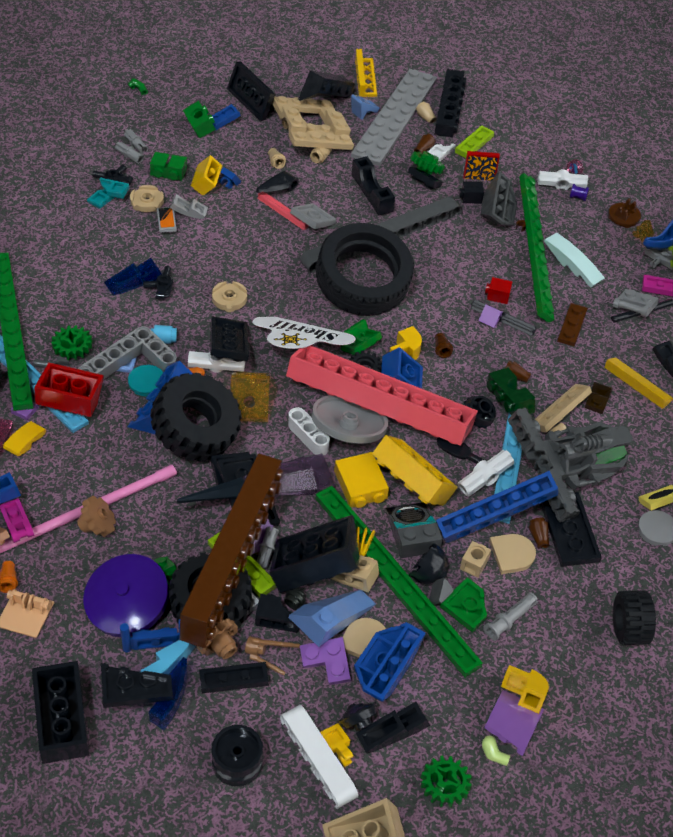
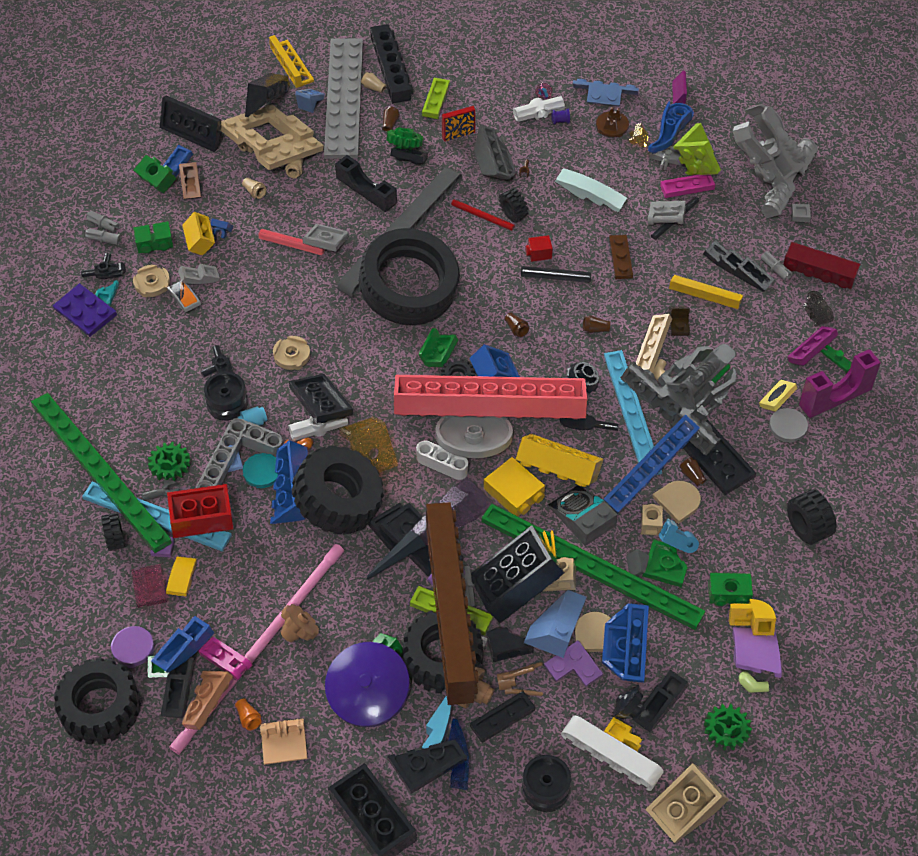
camera: 20 degrees left, 5 degrees up
(79, 201) = (84, 310): none -> dark purple plate
(114, 188) = (113, 282): teal tile -> none
(133, 277) = (188, 370): clear blue slope -> none
(141, 86) = (62, 156): green arm -> none
(148, 639) = (414, 713): blue plate -> none
(150, 306) = (225, 395): none -> black wheel
(225, 133) = (190, 180): none -> nougat arch
(279, 182) = (275, 213): black piece -> none
(295, 598) = (516, 623): pearl dark grey plate -> none
(300, 335) = (382, 369): white sticker -> none
(409, 341) = (485, 333): yellow brick -> none
(430, 566) = (619, 540): black cylinder -> none
(441, 151) = (408, 120): white tile -> none
(464, 247) = (483, 215): none -> red bar
(471, 192) = (462, 154): black brick -> none
(486, 473) = (620, 435): white piece -> none
(490, 316) = (544, 277): medium lavender tile -> none
(490, 585) = (681, 540): none -> dark azure leg
(494, 246) = (513, 205): none -> black tyre
(504, 387) = (592, 344): dark green arch -> none
(505, 620) = (704, 564): light grey pin -> none
(514, 643) = (721, 582): none -> green brick
(536, 248) = (550, 190): green plate -> none
(630, 187) = (604, 93): none -> medium blue bracket

